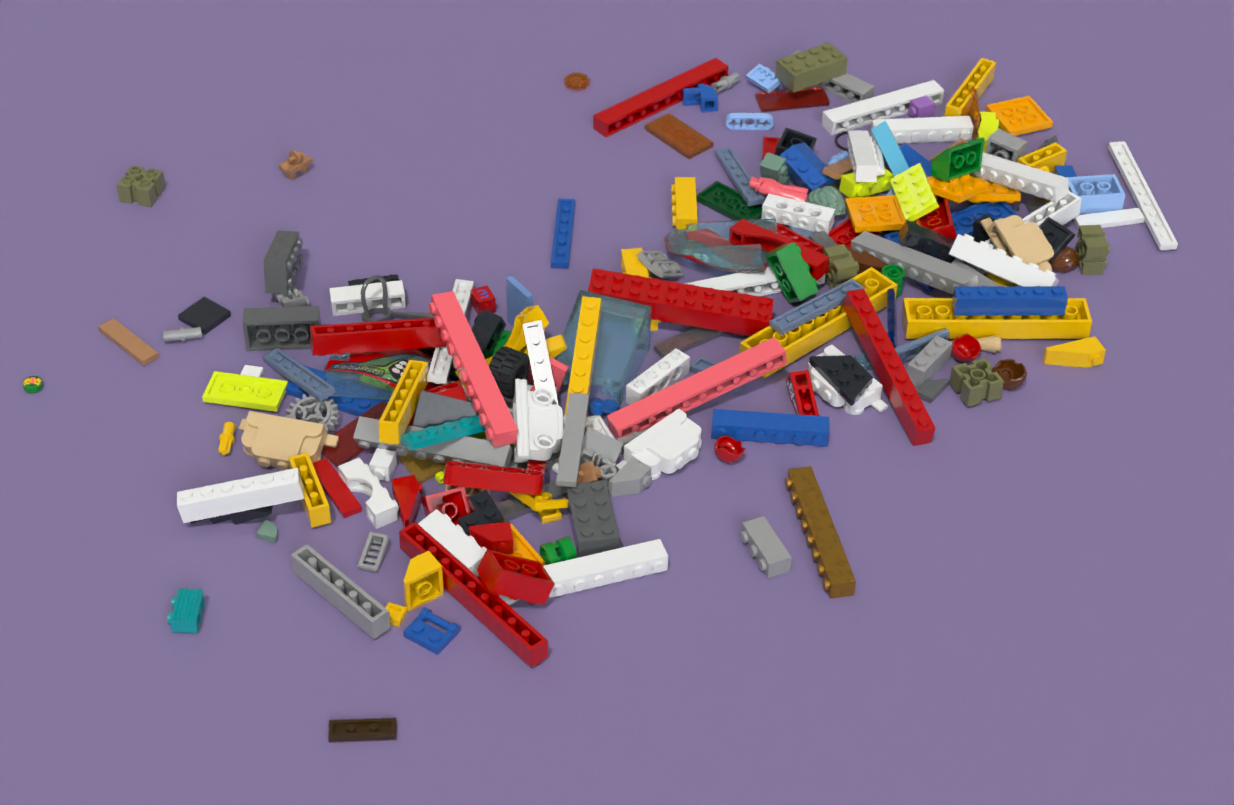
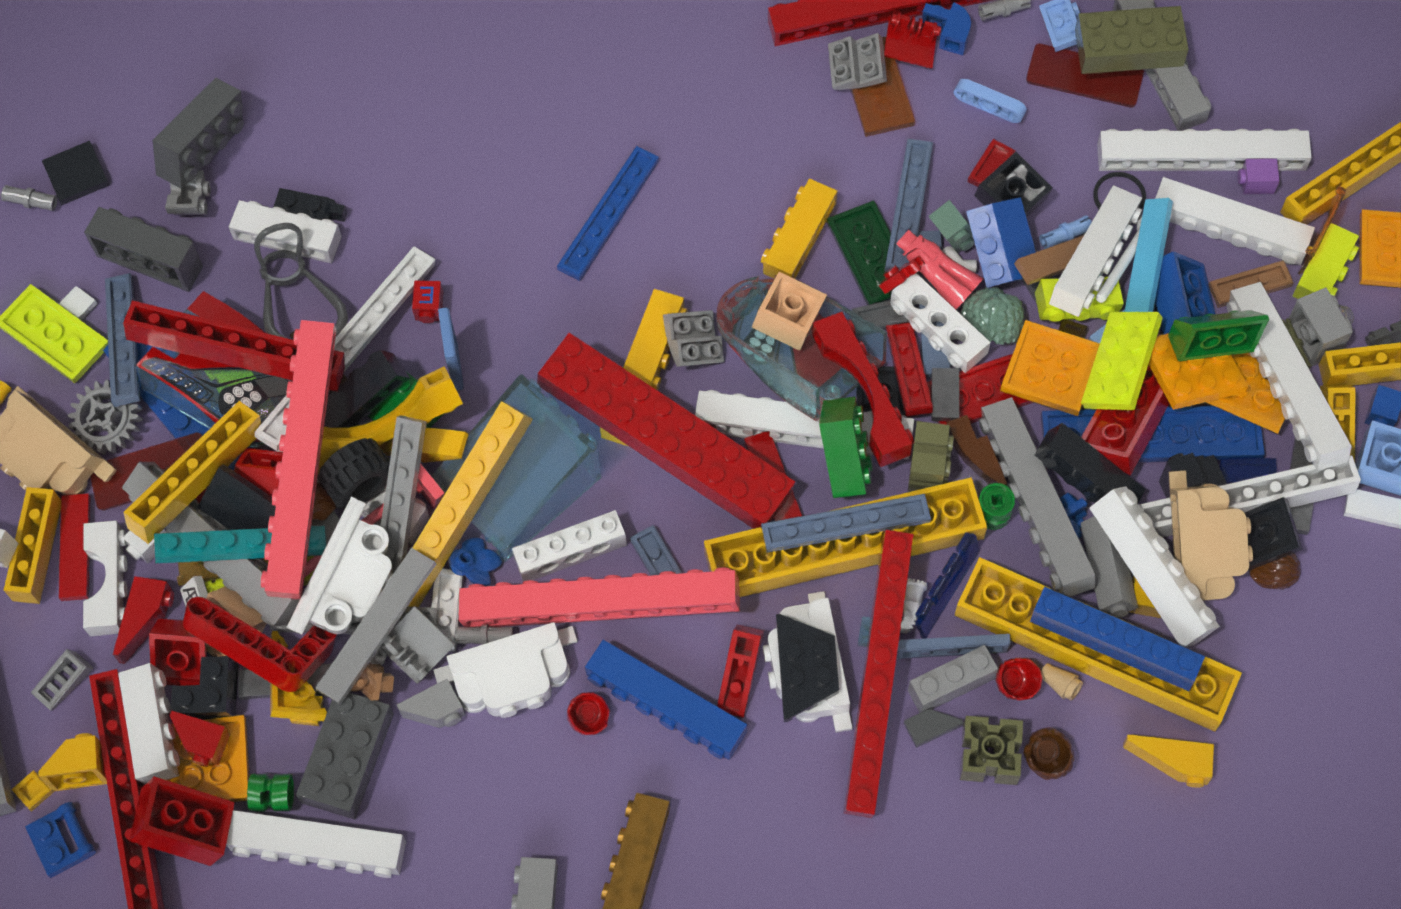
camera: 30 degrees right, 25 degrees up
(434, 480) = (194, 588): none -> white tile
(607, 473) = (409, 682): light grey bush -> none
(662, 125) = (857, 62): none -> light grey slope
(684, 107) = (911, 40): none -> red hinge
(686, 340) = (645, 489): flat silver tile -> none
(709, 231) = (788, 311): none -> light nougat slope
(759, 199) = (896, 275): none -> red plate
(1092, 249) = (1321, 575): olive brick -> none

